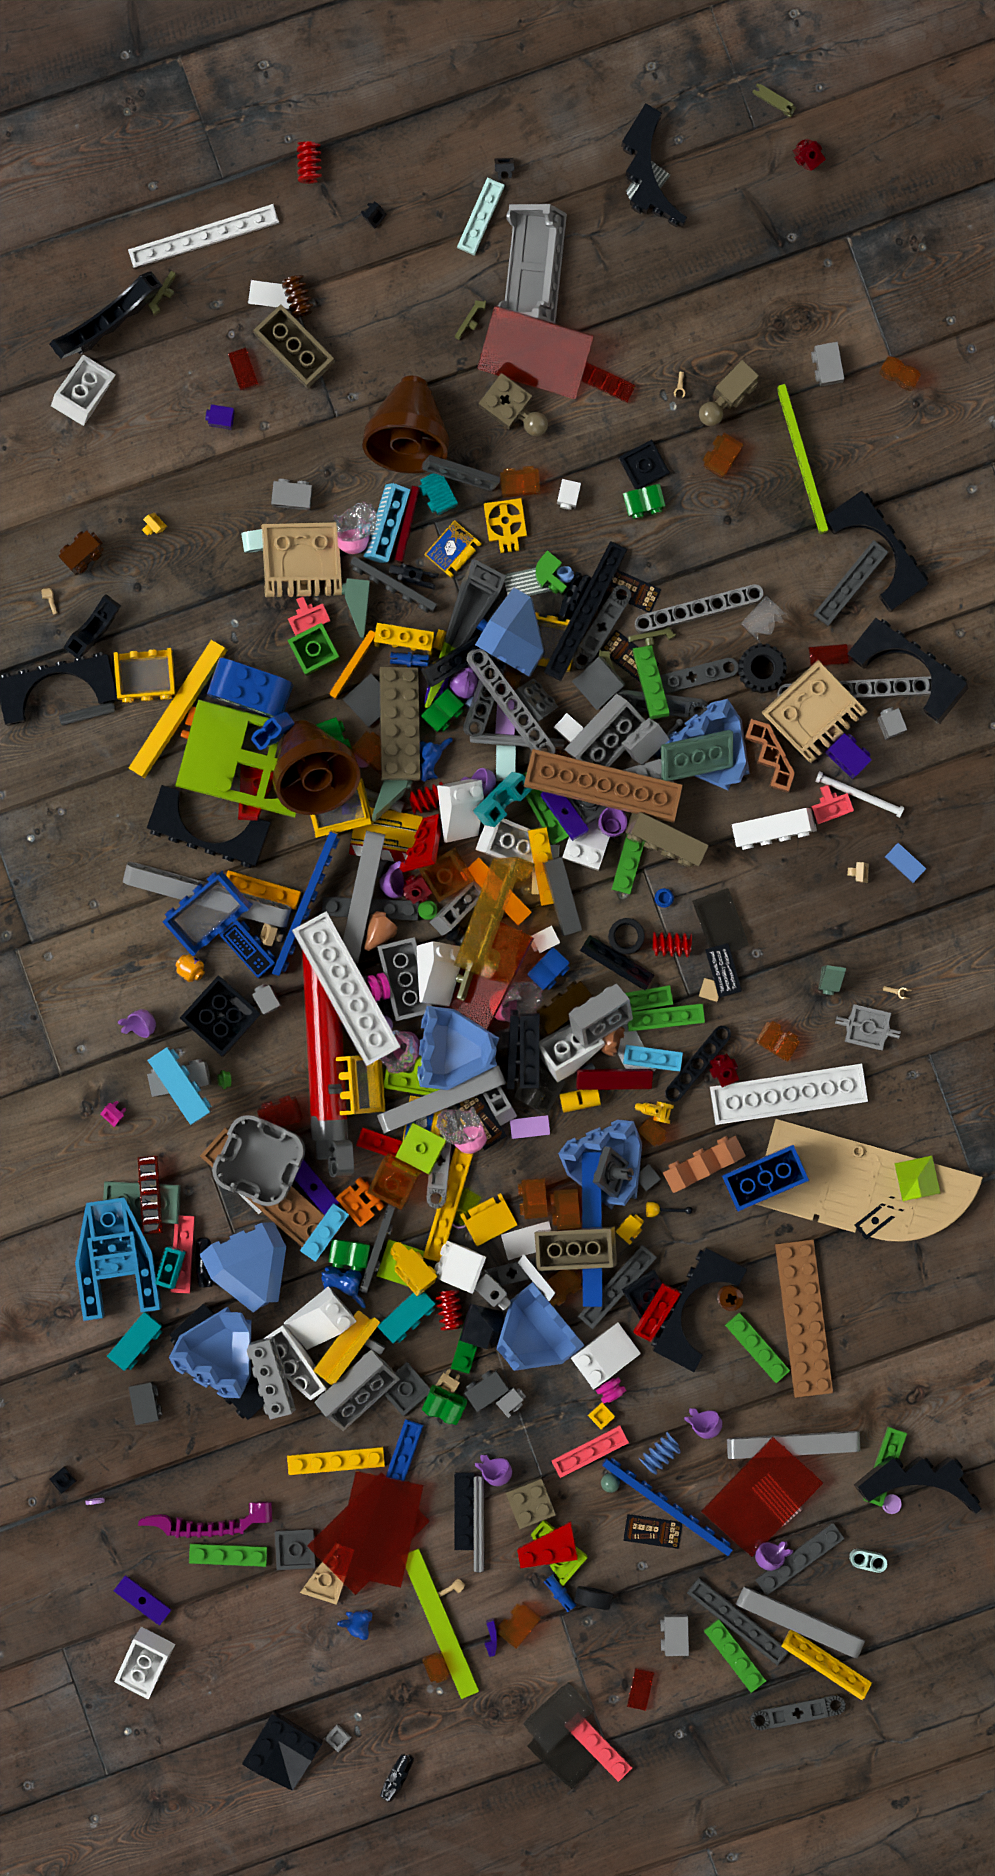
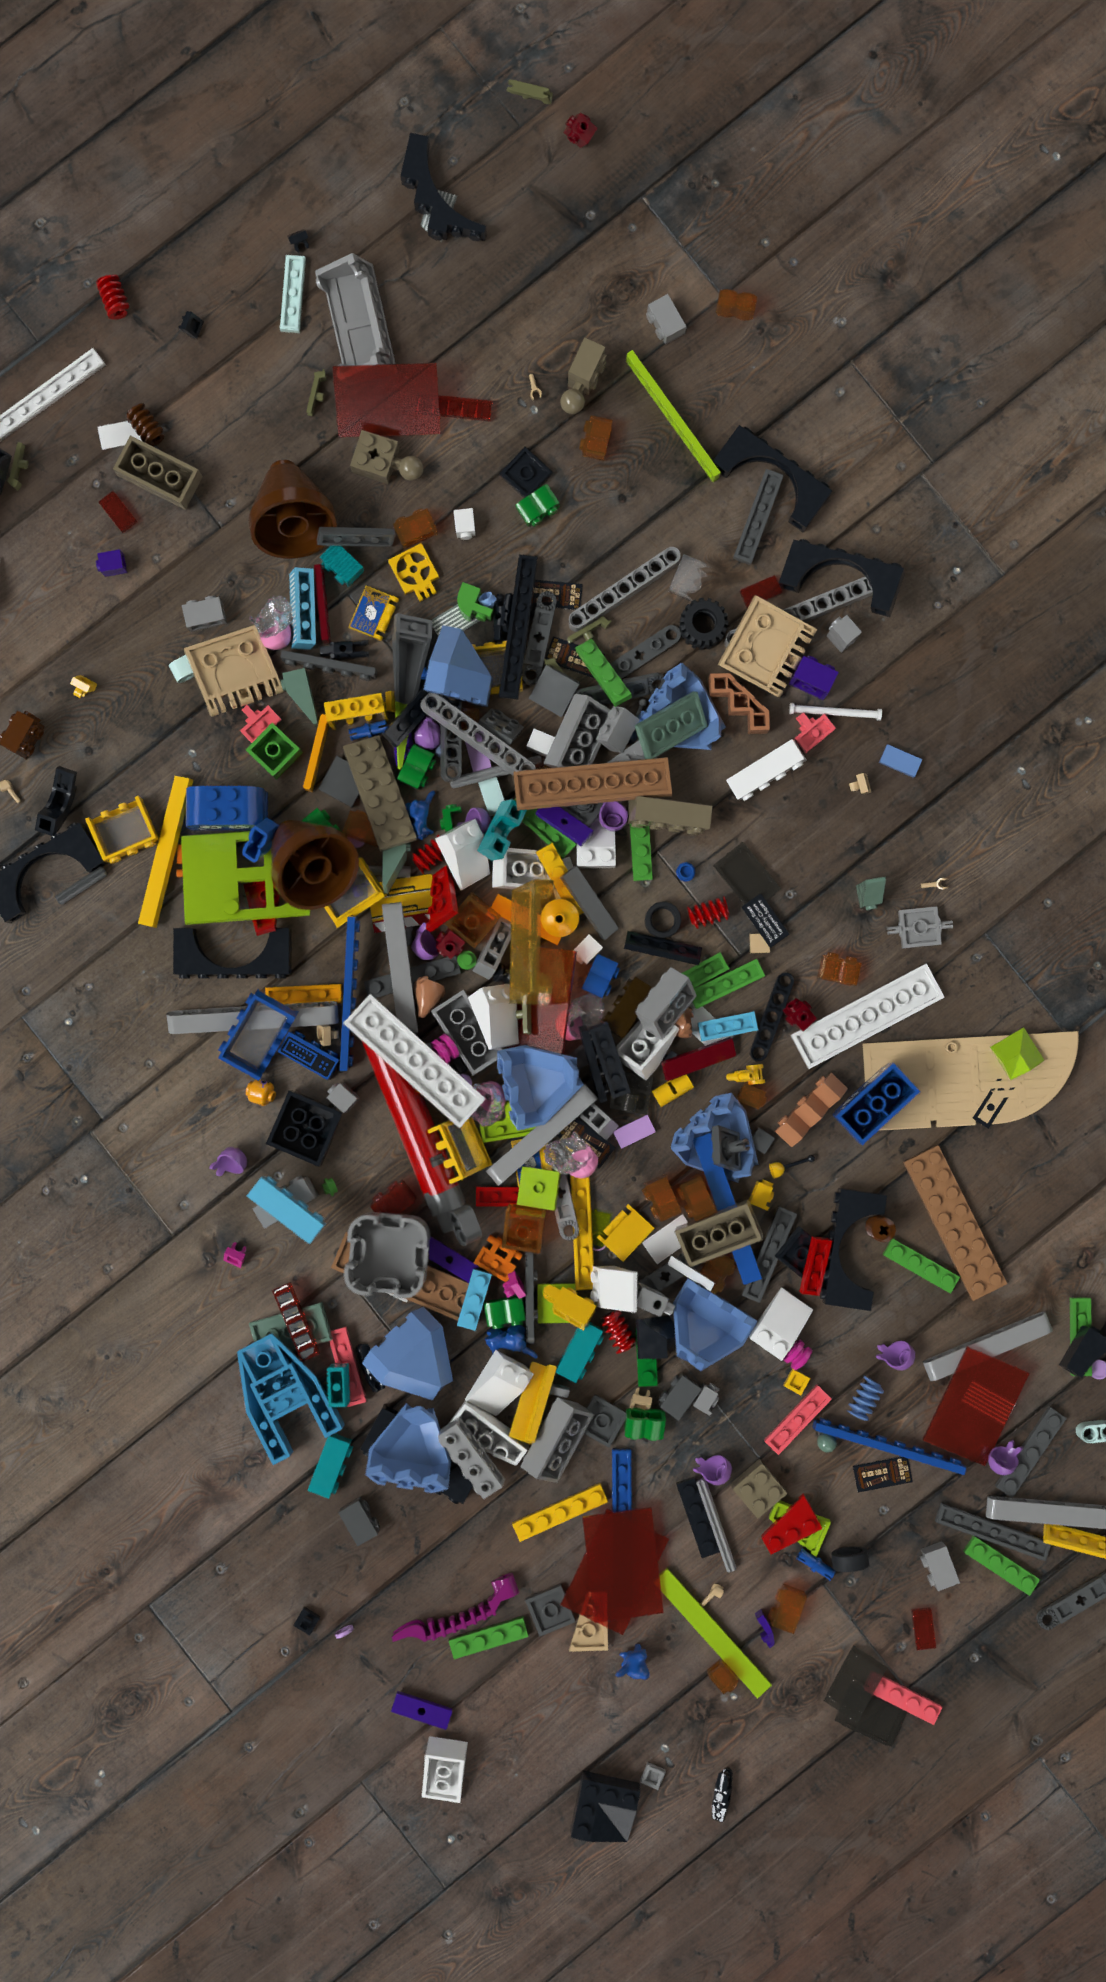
camera: 25 degrees left, 0 degrees up
(366, 1232) = (514, 1286): none -> dark pink tile
(453, 773) = (446, 821): none -> green bracket
(536, 894) = (566, 910): none -> yellow dish

